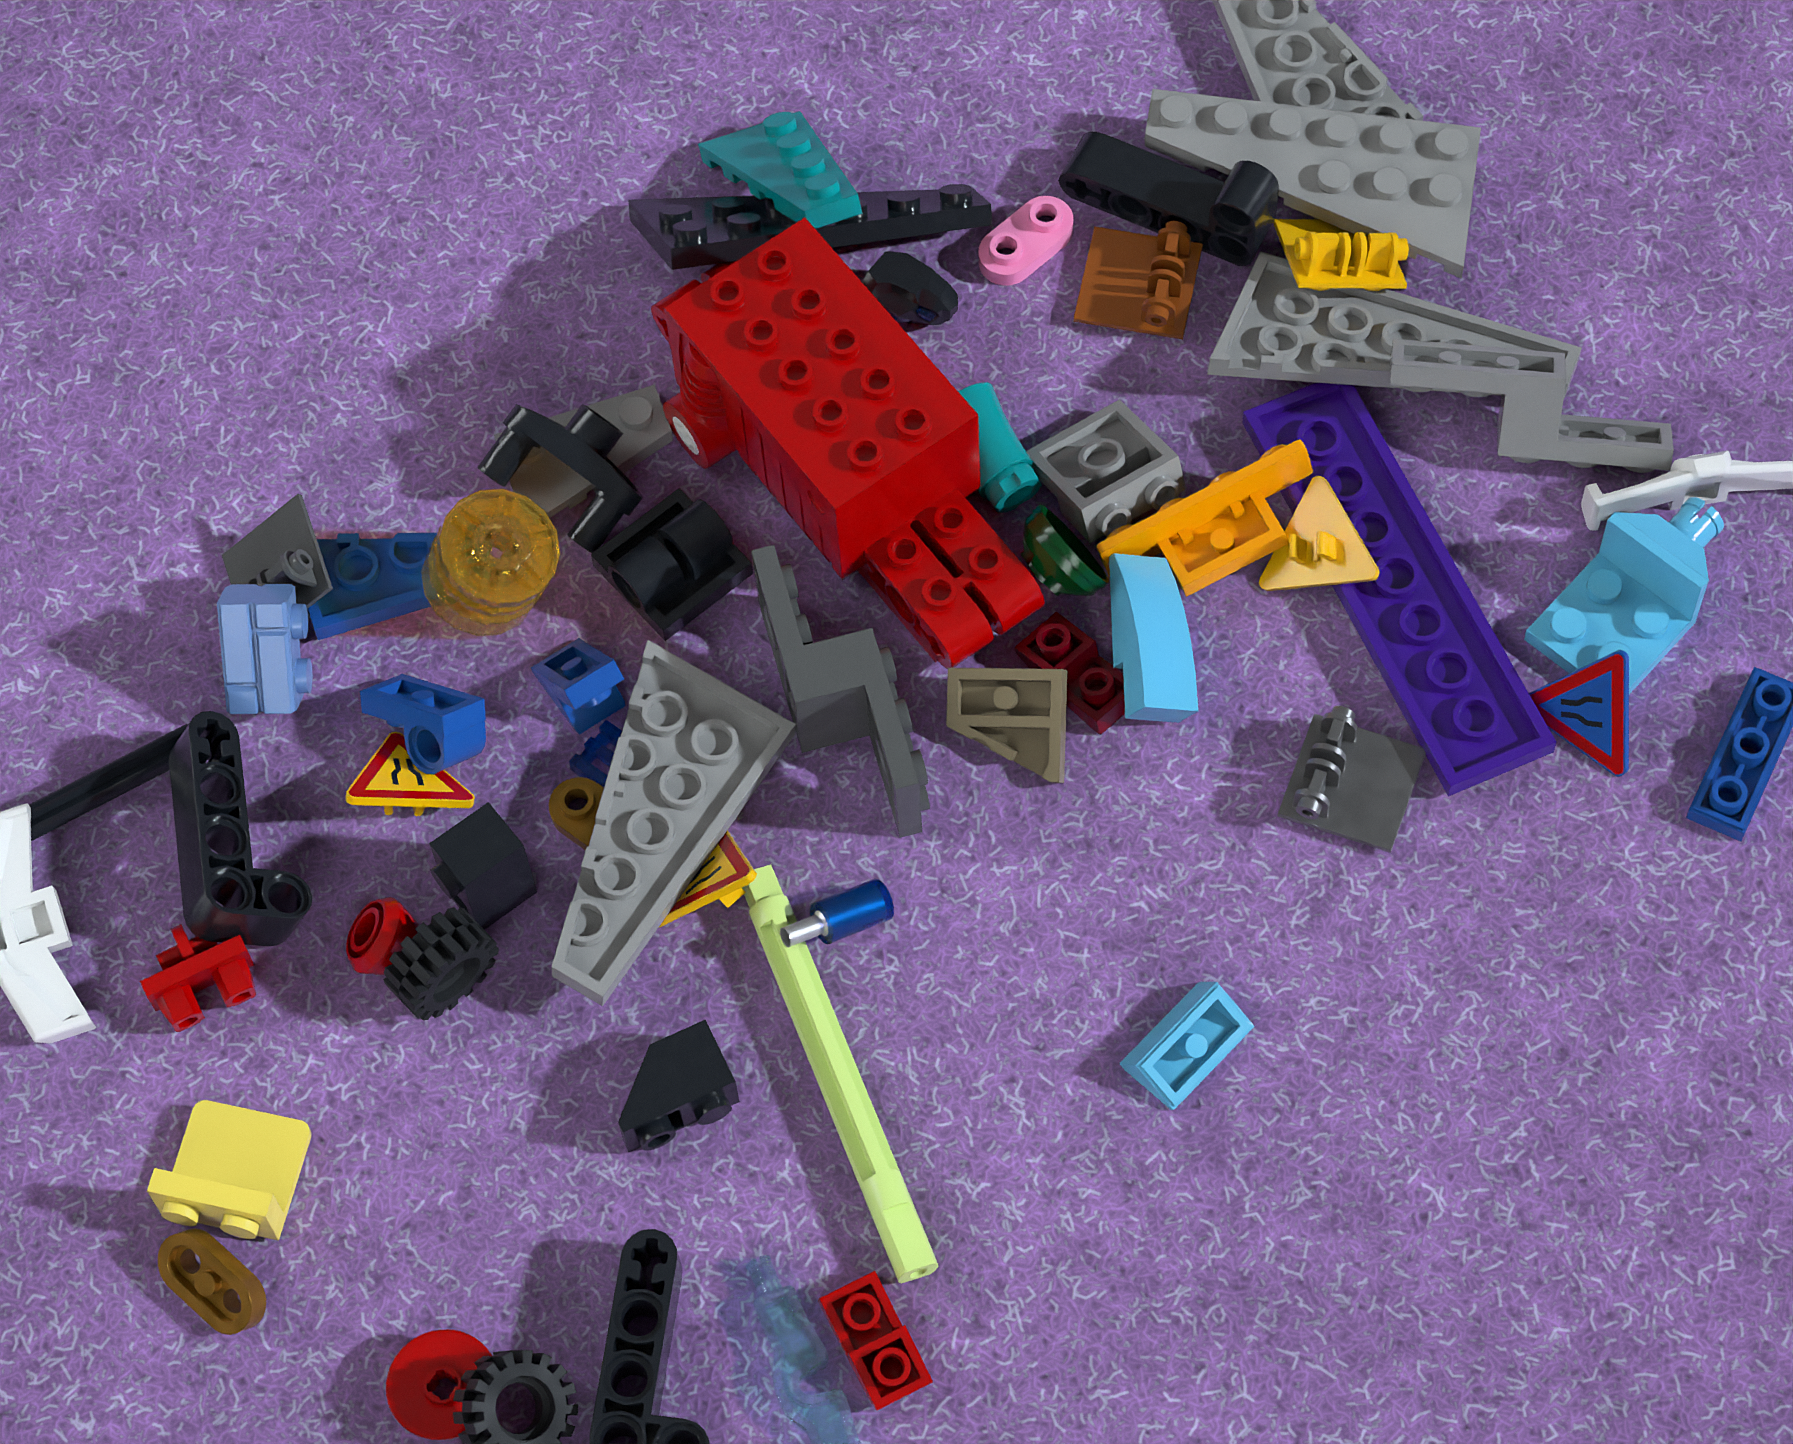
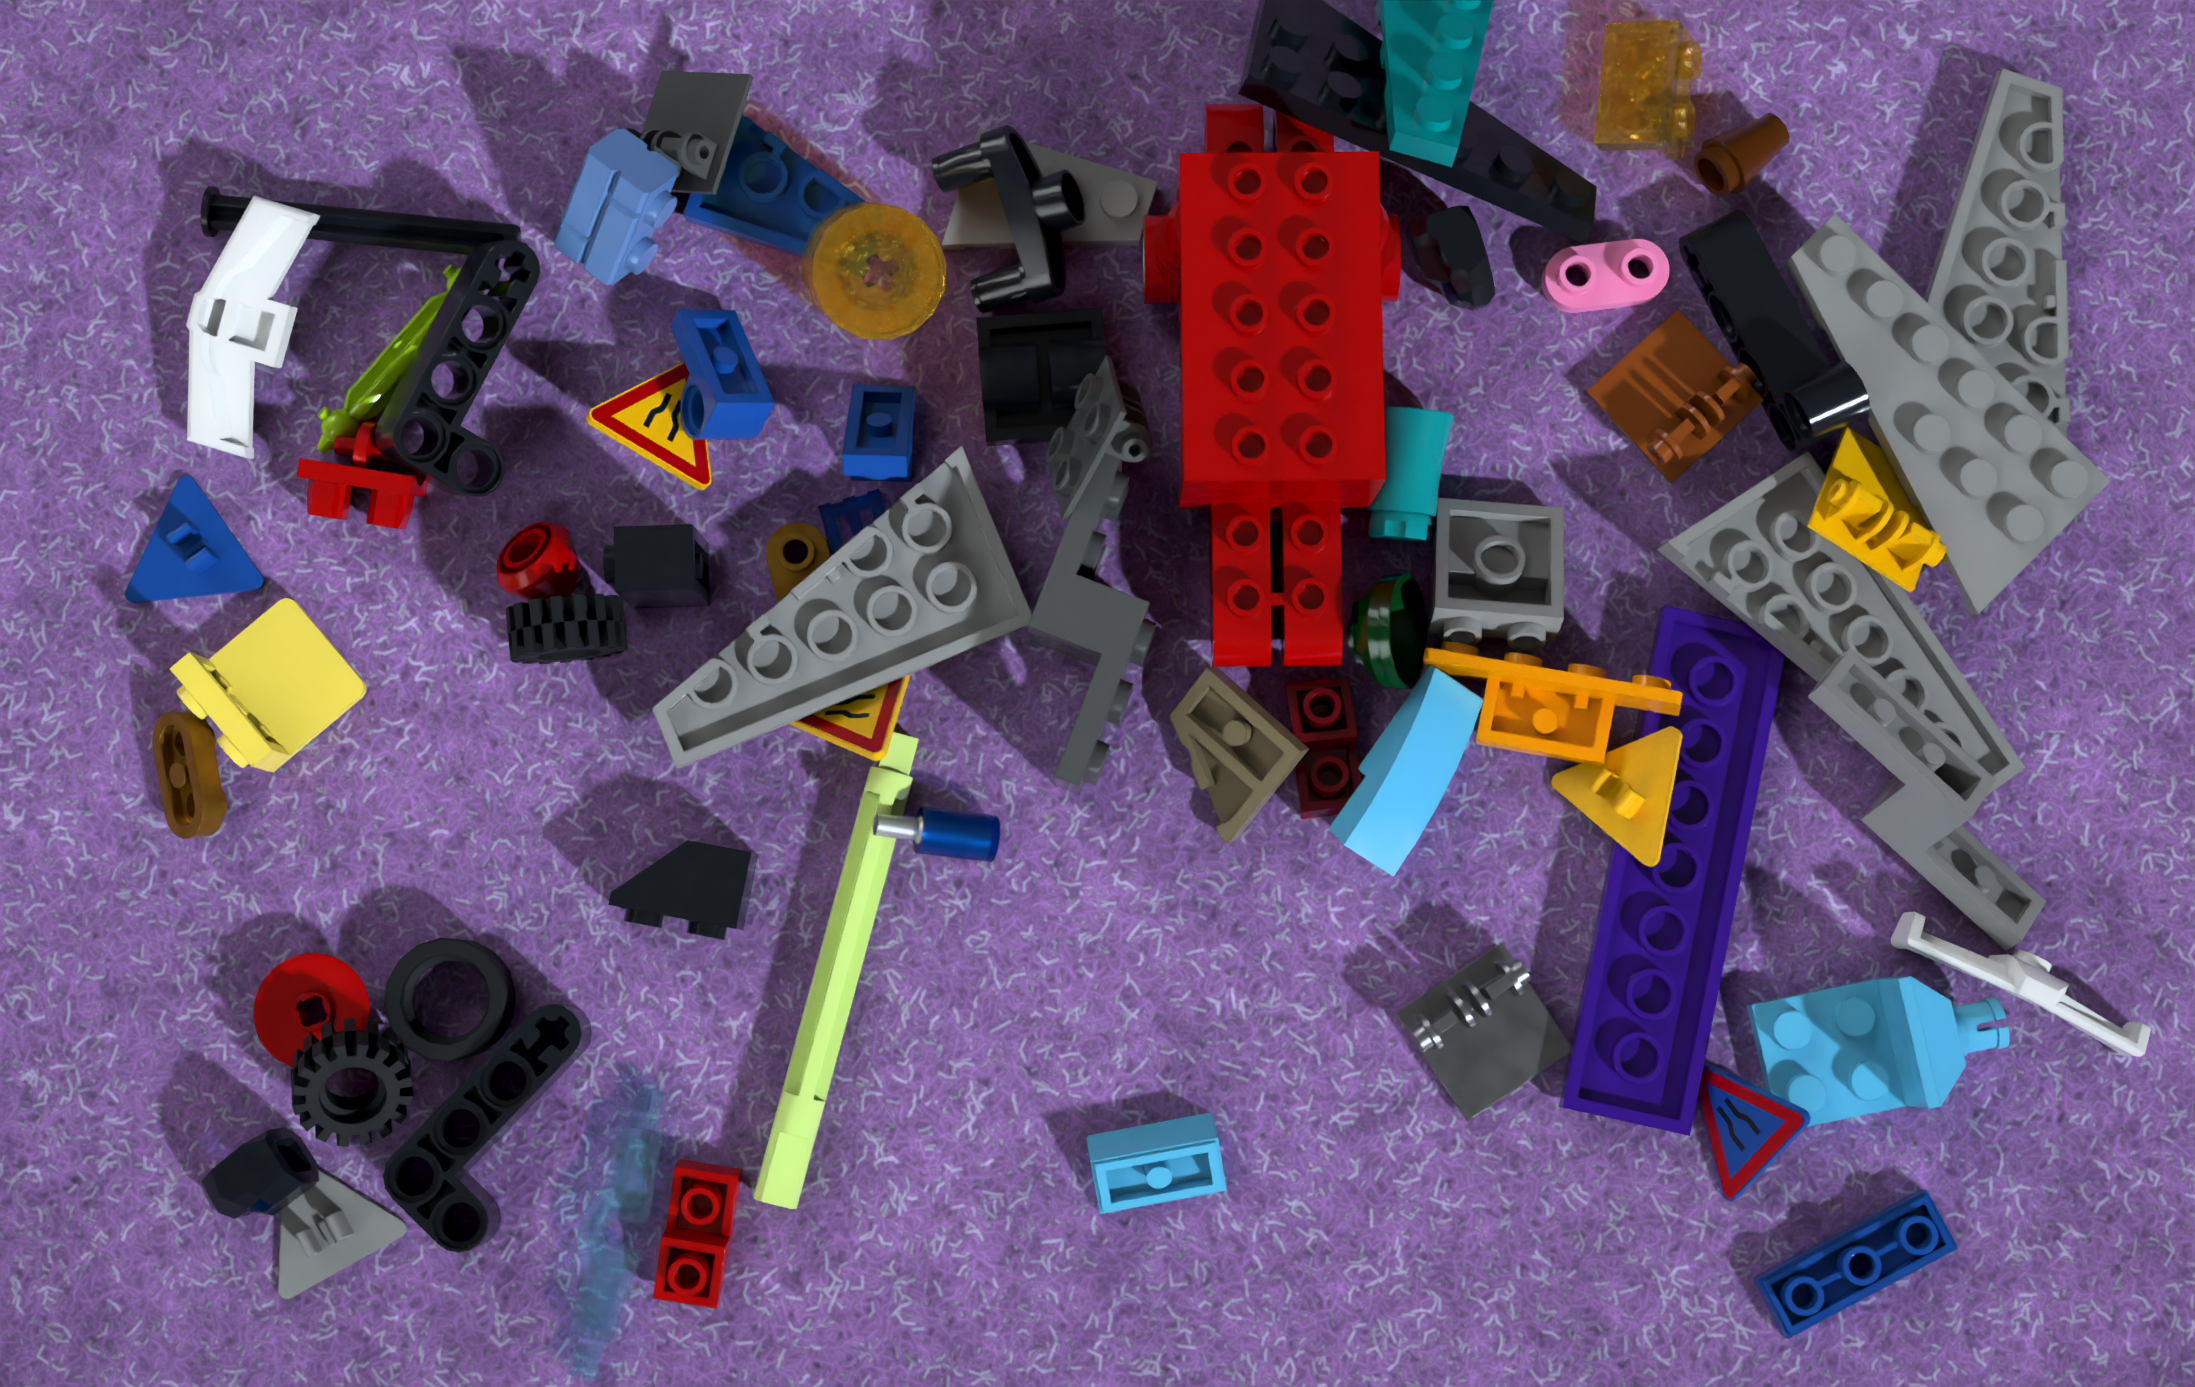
camera: 30 degrees right, 20 degrees up
(95, 1128) = (192, 553): none -> blue piece
(160, 891) = (381, 378): none -> lime wheel
(539, 1256) = (401, 992): none -> black tyre
(736, 535) = (1105, 421): none -> dark grey hinge
(955, 103) = (1647, 87): none -> clear yellow bracket
(1056, 104) = (1737, 156): none -> reddish brown cone

